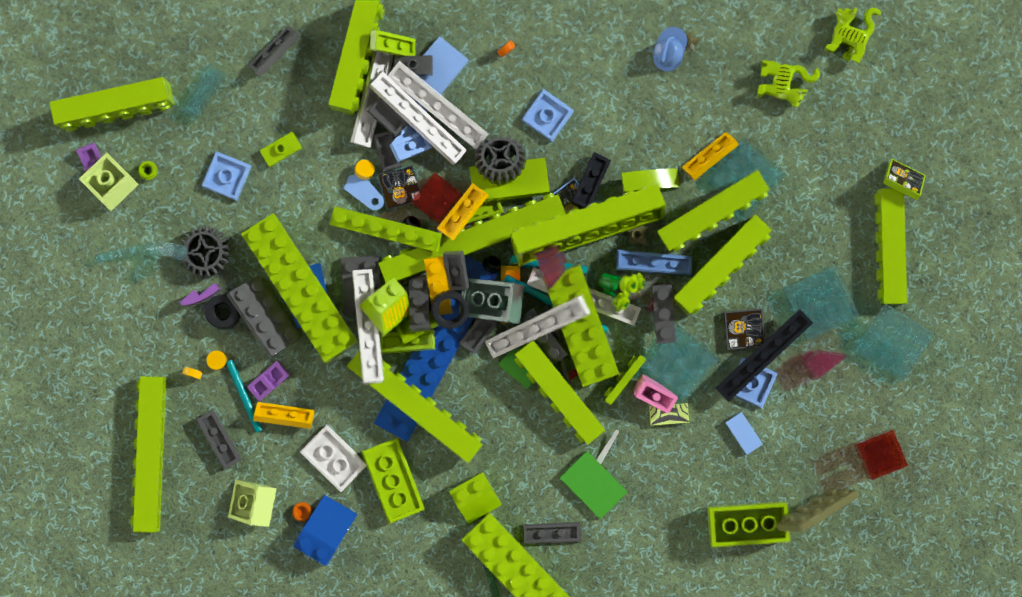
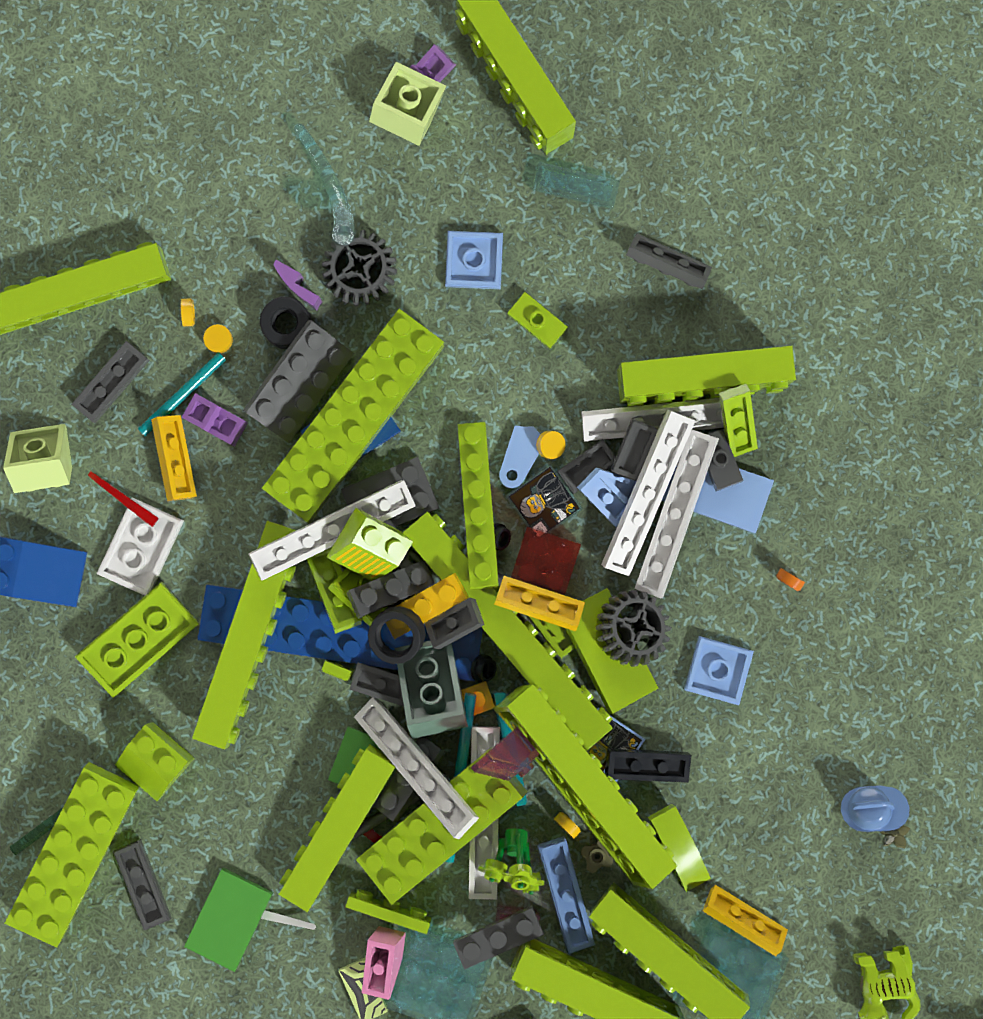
camera: 75 degrees right, 0 degrees up
(141, 170) = (443, 142): lime plate -> none
(302, 511) = (52, 530): orange tile -> none
(303, 454) = (144, 514): none -> red sticker
(459, 358) = (337, 670): none -> lime tile
(610, 246) = (567, 824): none -> yellow tile

